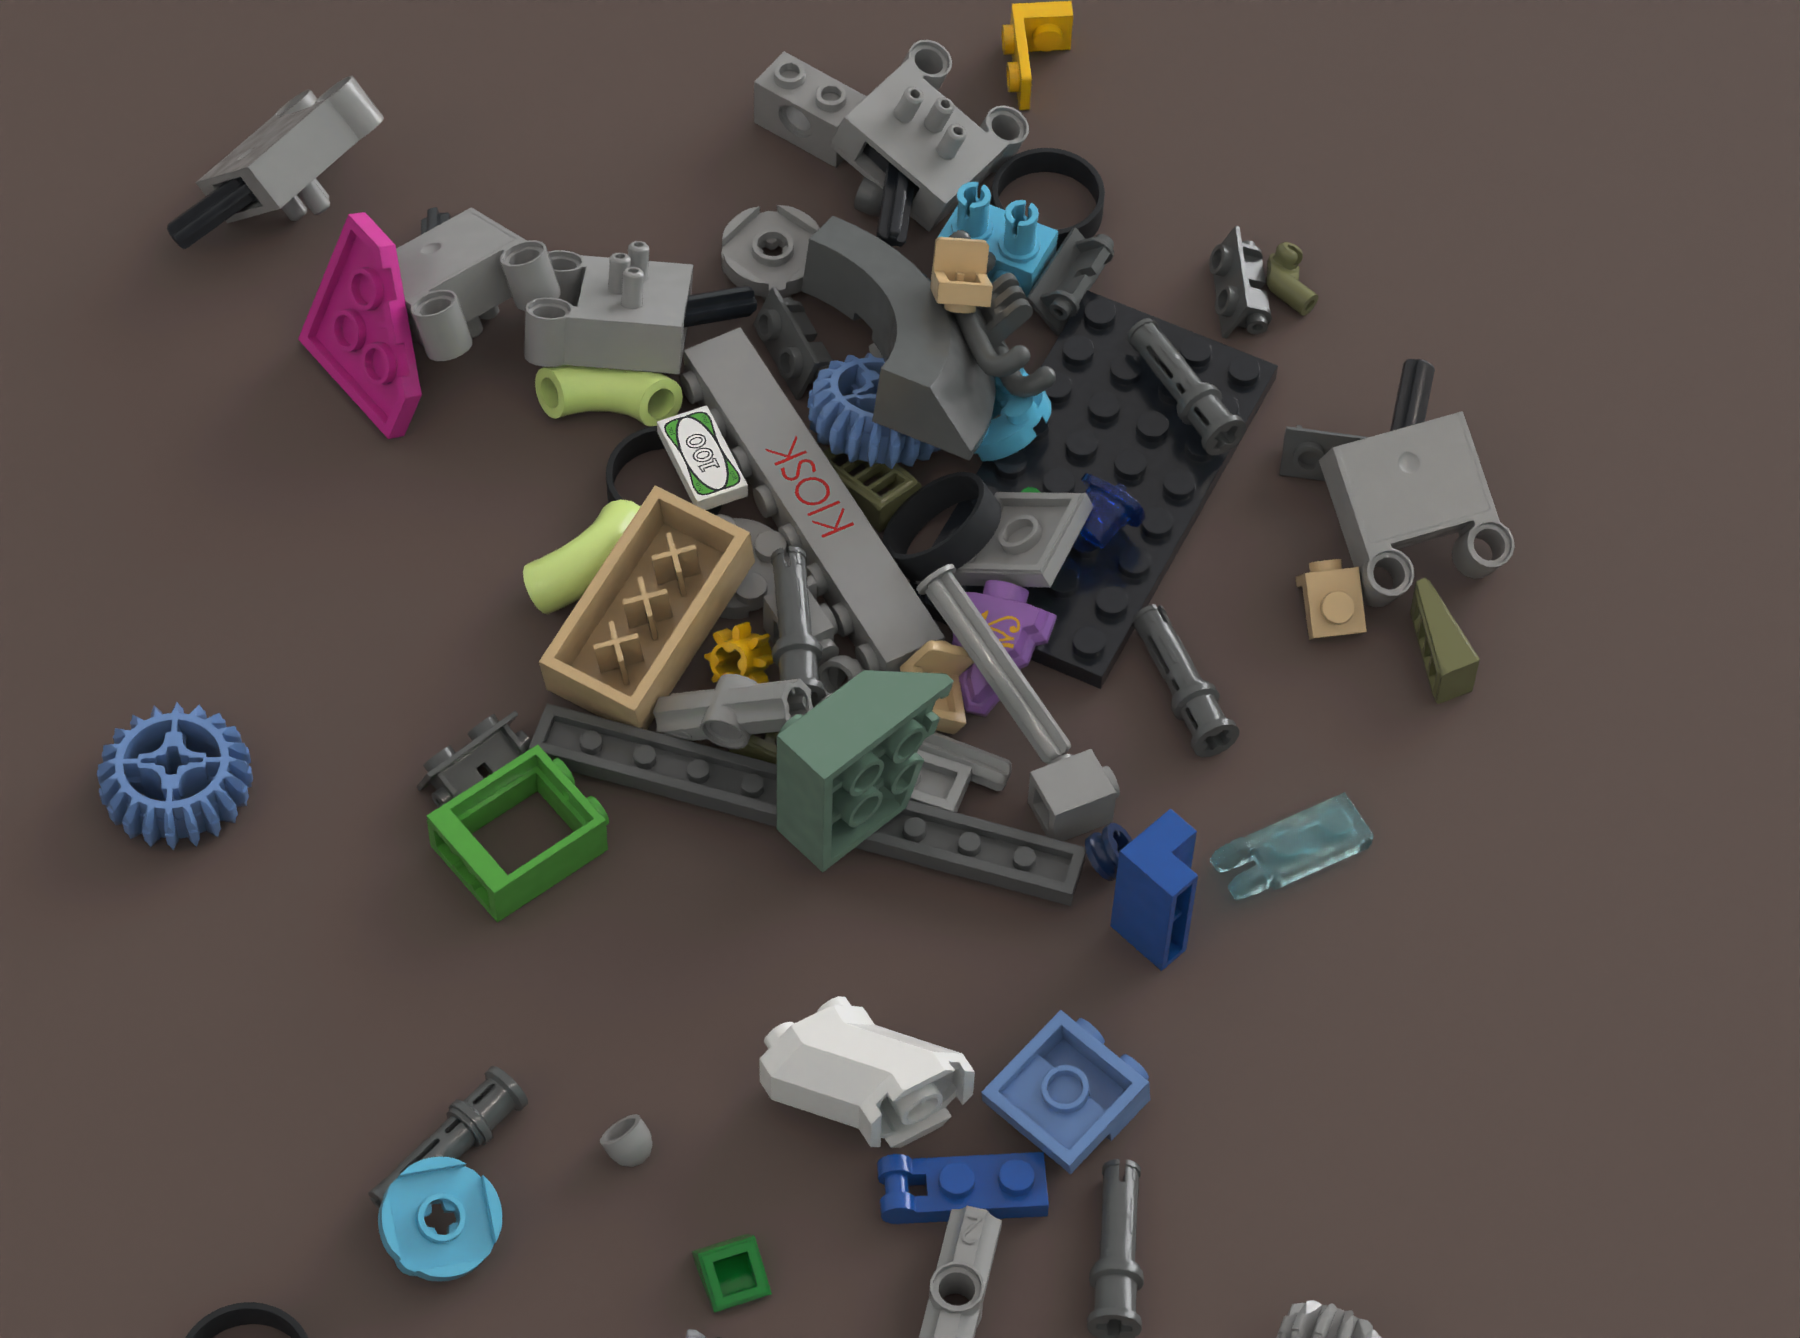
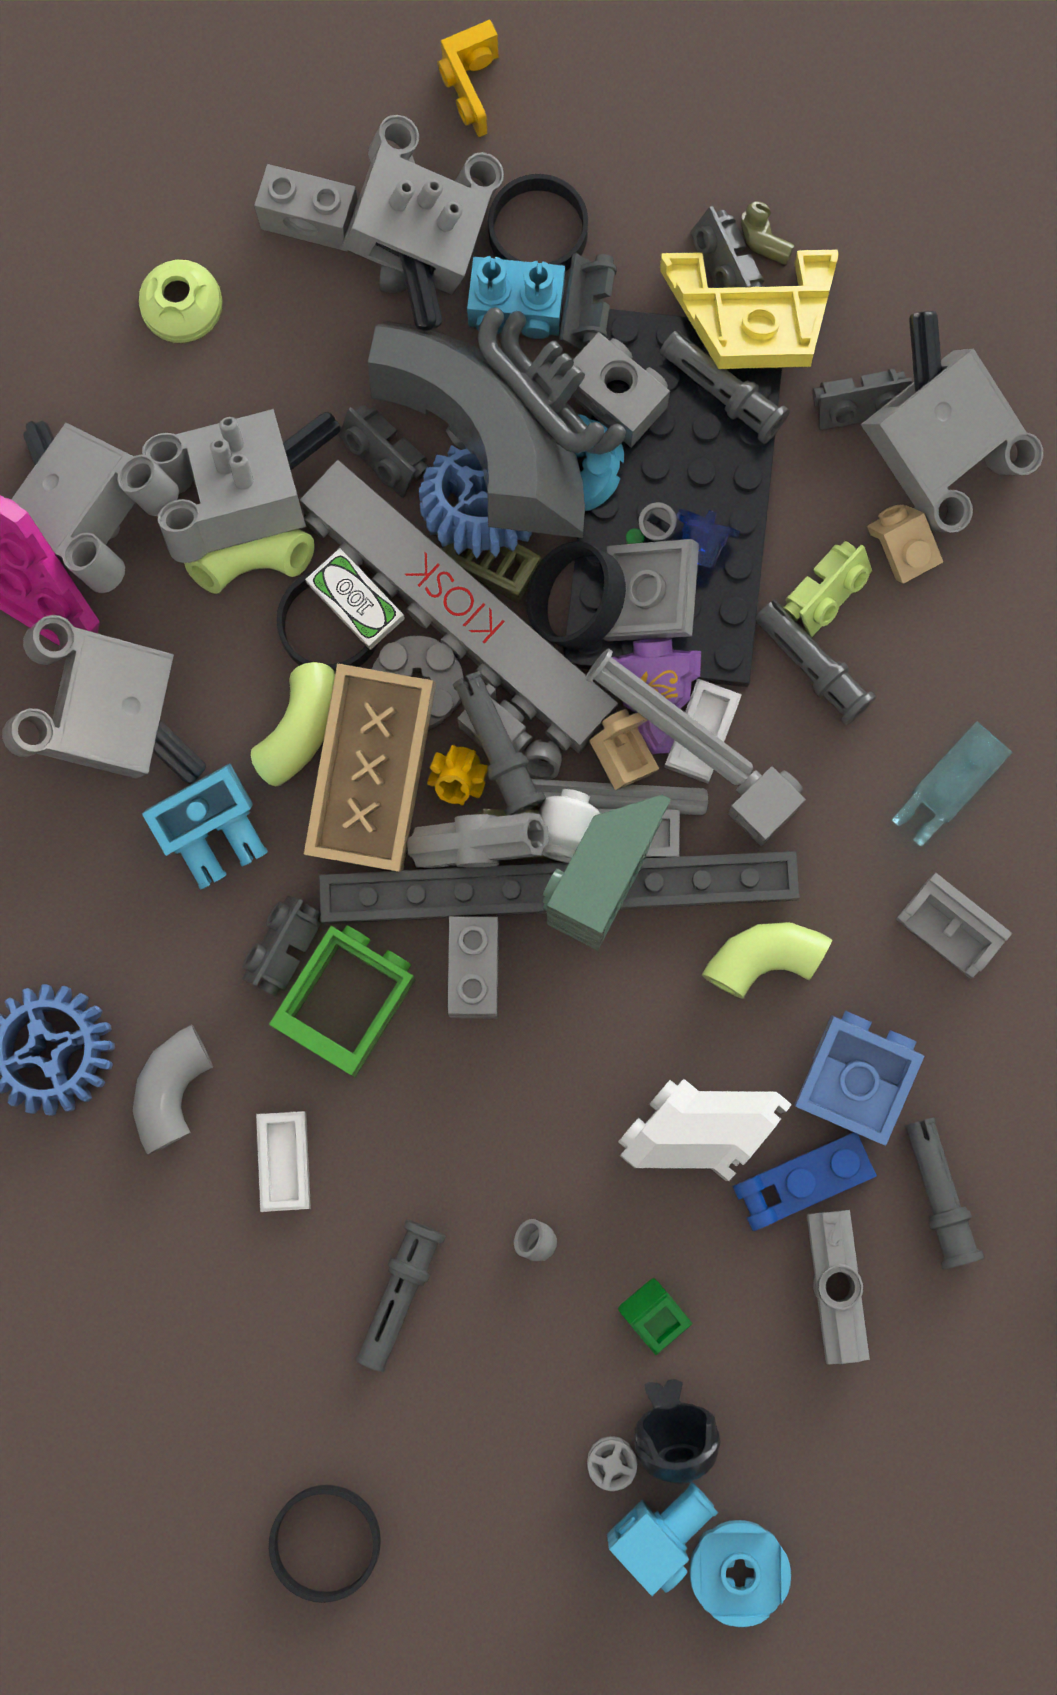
camera: 15 degrees left, 25 degrees up
(279, 851) = (161, 1089): none -> light grey cylinder
(379, 974) = (283, 1161): none -> white tile
(390, 466) = (104, 705): none -> light grey piece
(446, 599) = (187, 817): none -> medium azure brick
(459, 1190) = (449, 1373): medium azure plate -> none
(640, 169) = (186, 319): none -> yellowish green piece
(676, 845) = (473, 967): none -> light grey brick
(750, 232) = (318, 339): light grey plate -> none
(960, 274) = (514, 366): tan bracket -> none
(1014, 935) = (766, 949): none -> yellowish green cylinder
(1057, 690) = (714, 710): none -> white tile
(1066, 340) = (633, 409): none -> light grey brick
(1066, 474) = (664, 513): none -> light grey hinge
(1105, 848) = (815, 845): dark blue bush -> none
(1157, 890) = (870, 888): blue piece -> none
(1232, 619) = (843, 572): none -> yellowish green hinge
(1239, 981) = (953, 926): none -> light grey hinge
(1245, 342) = (754, 323): none -> light yellow wing
(1443, 646) = (1010, 557): olive slope -> none

